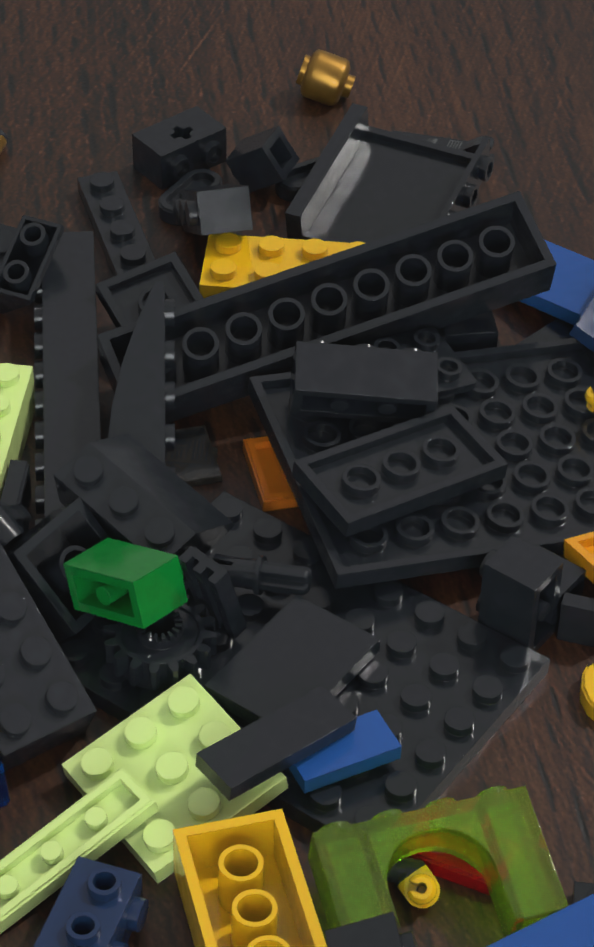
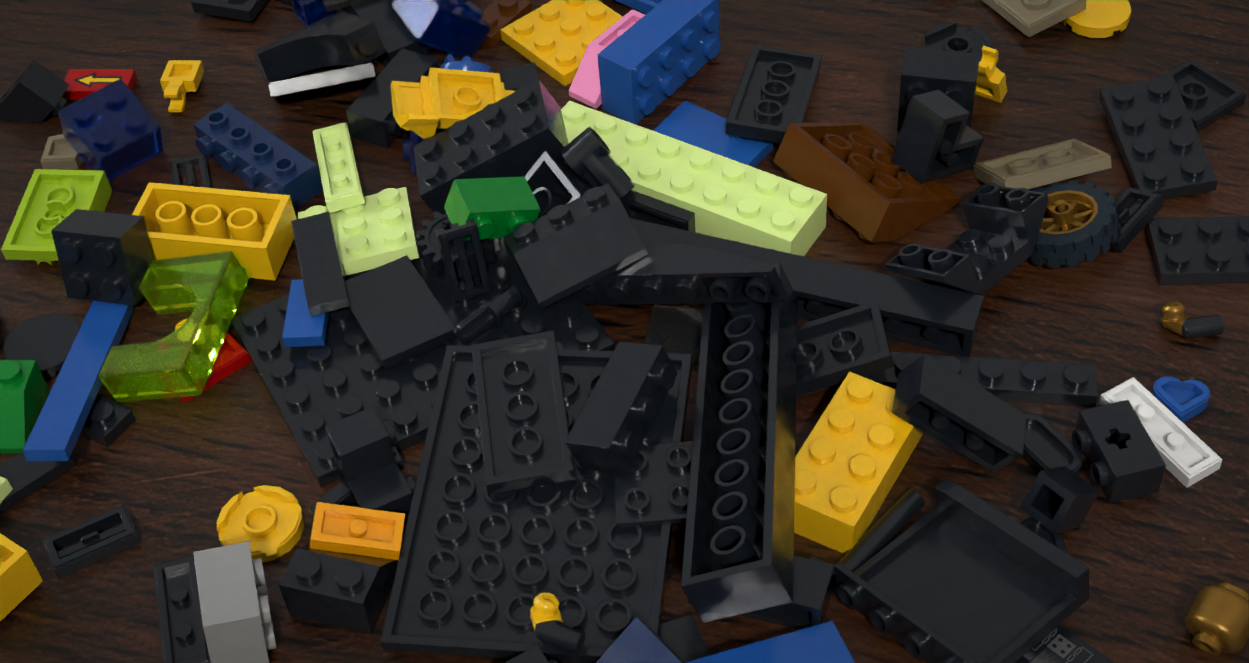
camera: 120 degrees right, 5 degrees up
(87, 135) = (1182, 398): none -> blue tile
(116, 150) = (1179, 447): none -> white tile

